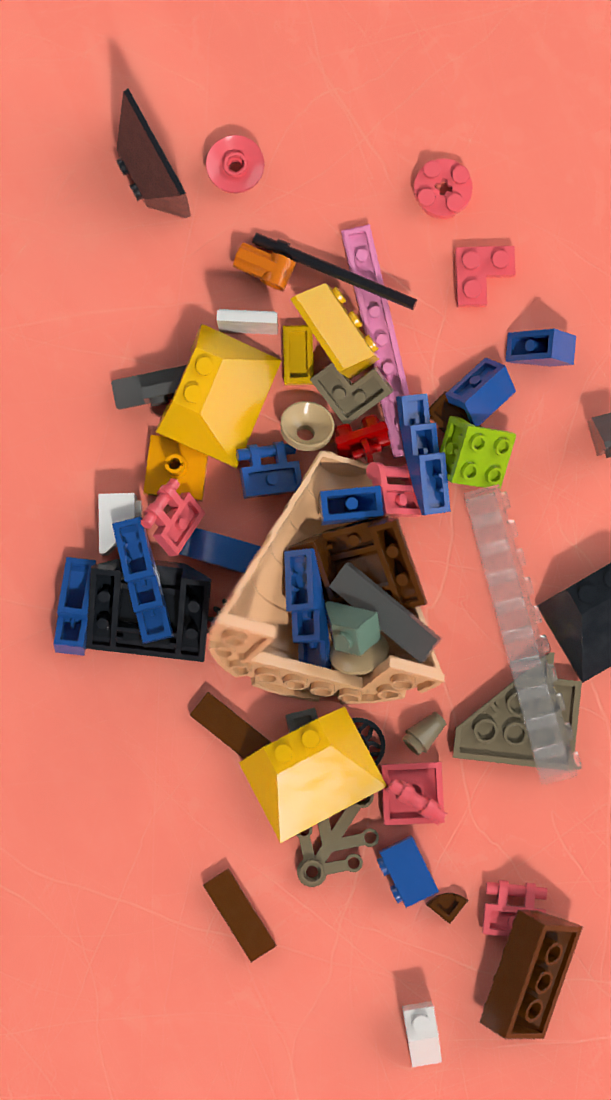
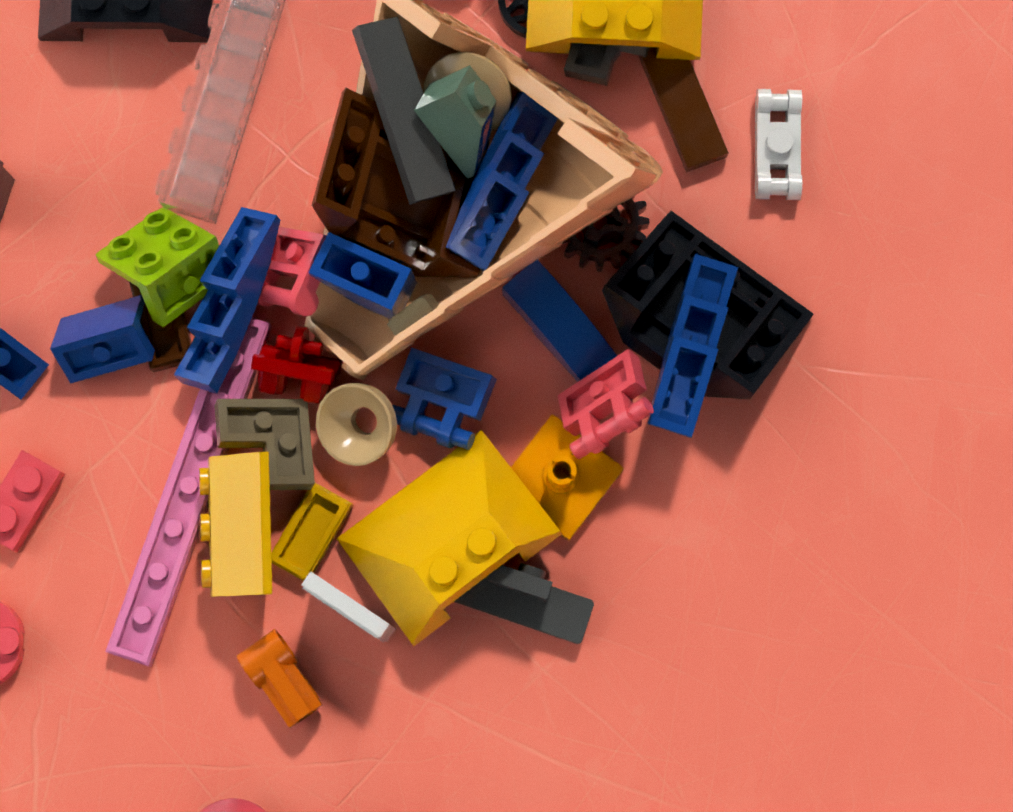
camera: 150 degrees left, 5 degrees down
(73, 607) = (797, 374): blue slope -> none
(113, 509) = (674, 459): white slope -> none
(163, 738) = (778, 144): none -> white plate
(283, 248) = (242, 687): black bar -> none
(304, 506) = (412, 313): none -> dark tan tile

